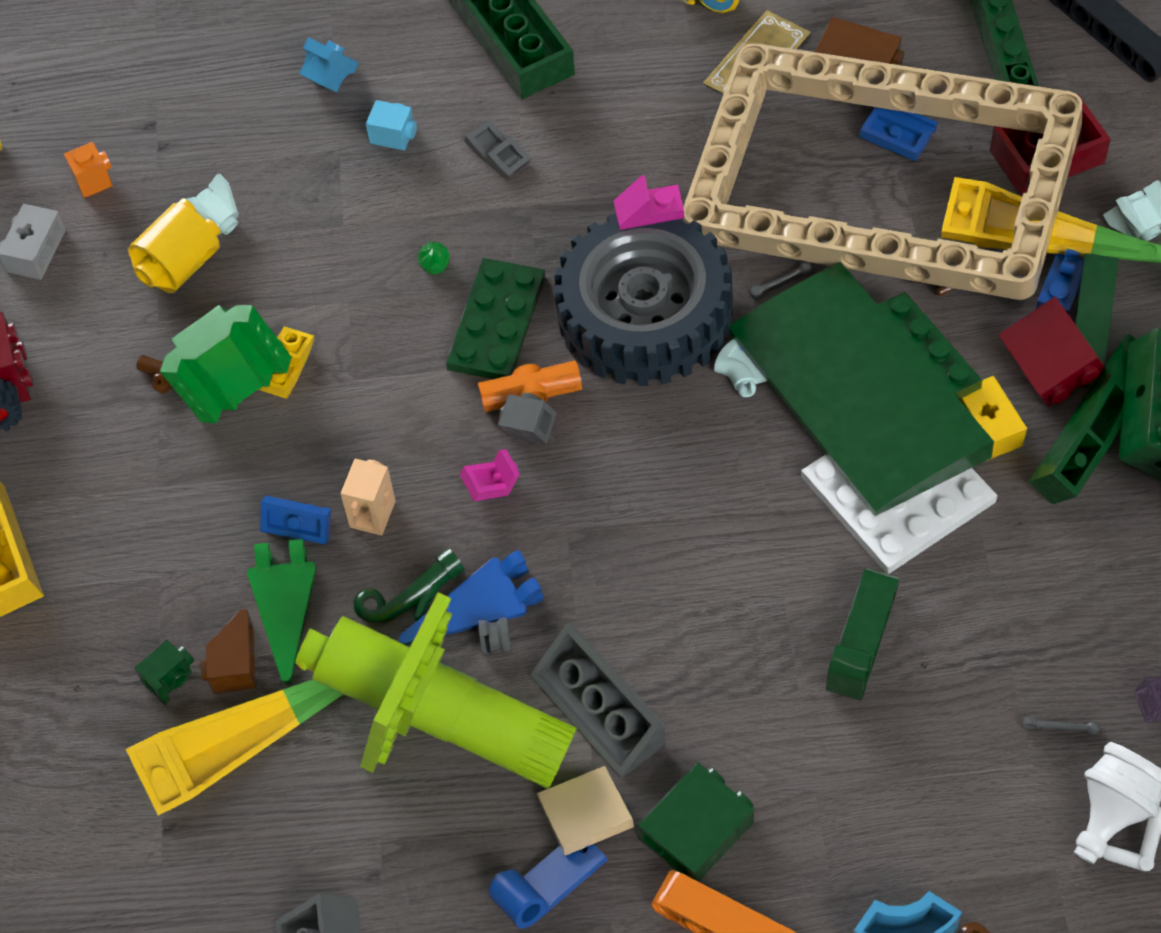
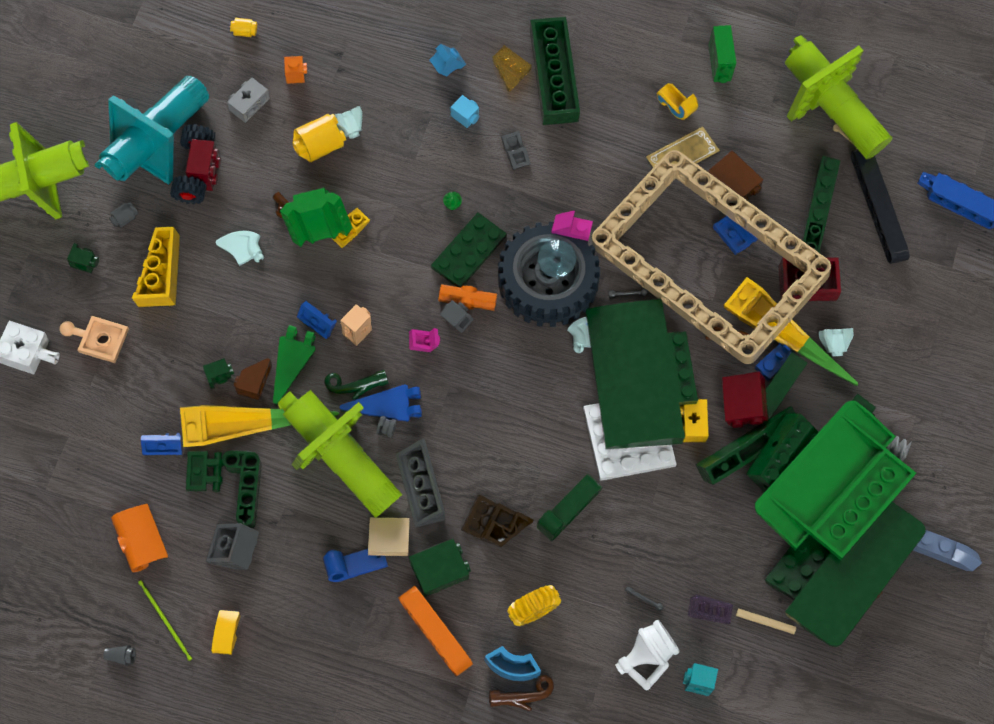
camera: 15 degrees right, 10 degrees up
(117, 828) = (161, 444): none -> blue plate
(118, 460) = (242, 246): none -> light aqua arm
(200, 844) = (198, 470): none -> dark green plate
(290, 810) = (246, 472): none -> dark green beam
(430, 40) = (511, 67): none -> clear yellow wing
(651, 246) = (558, 249): none -> clear light blue dish
(749, 711) = (494, 522): none -> dark brown slope
(891, 811) = (534, 605): none -> yellow gear

